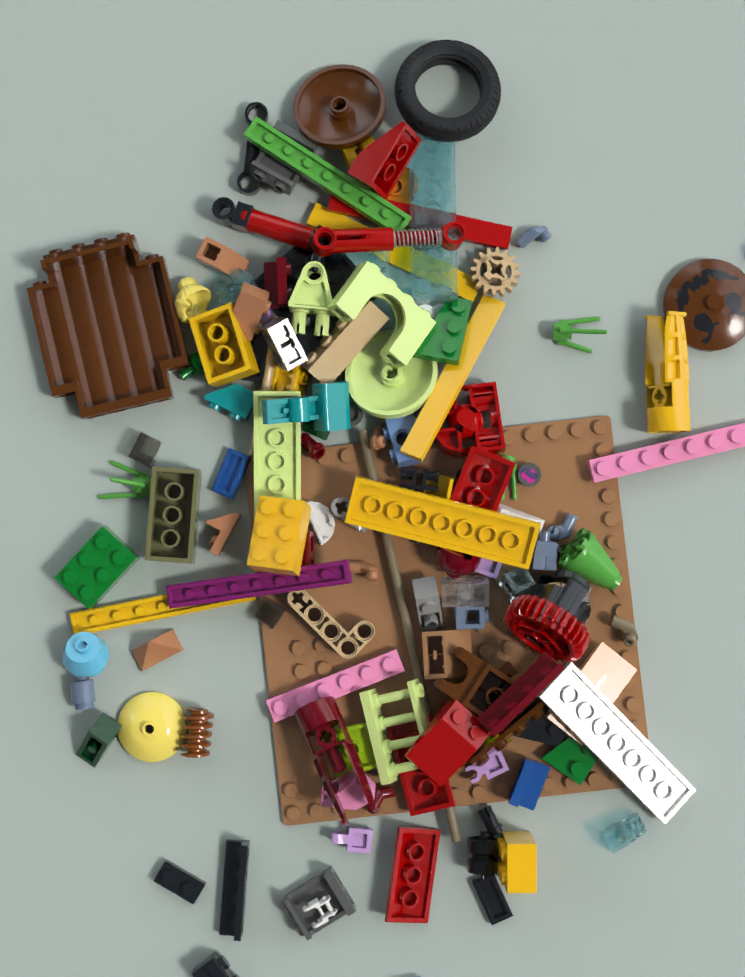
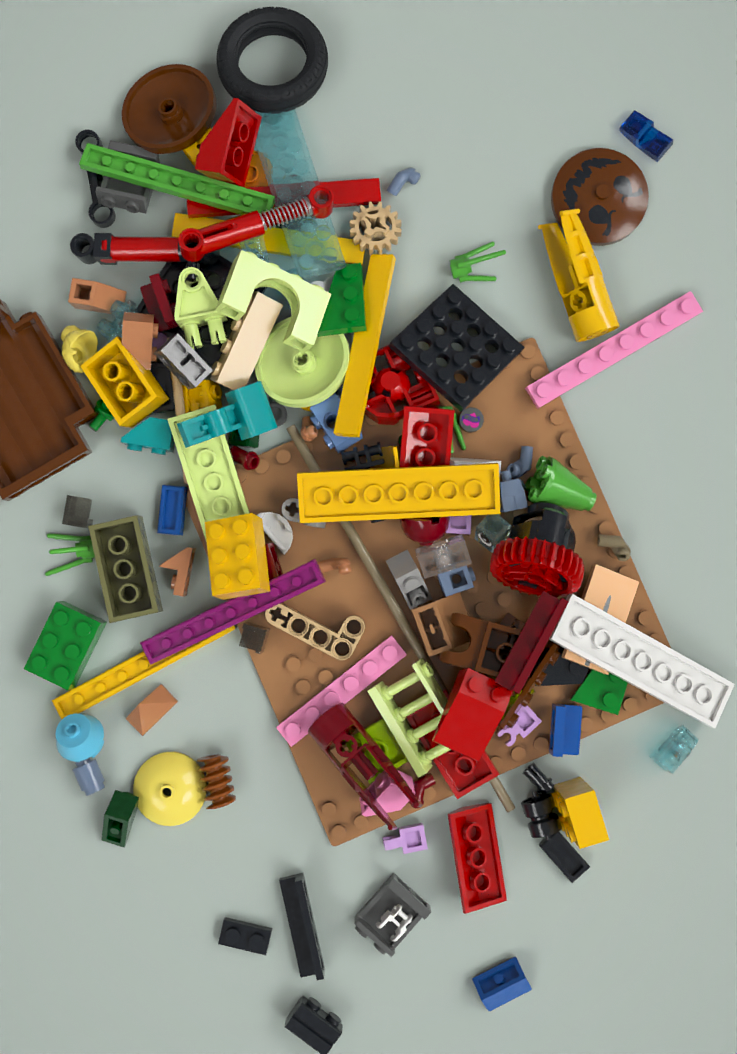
camera: 20 degrees left, 0 degrees up
(513, 429) = (458, 362): none -> black piece

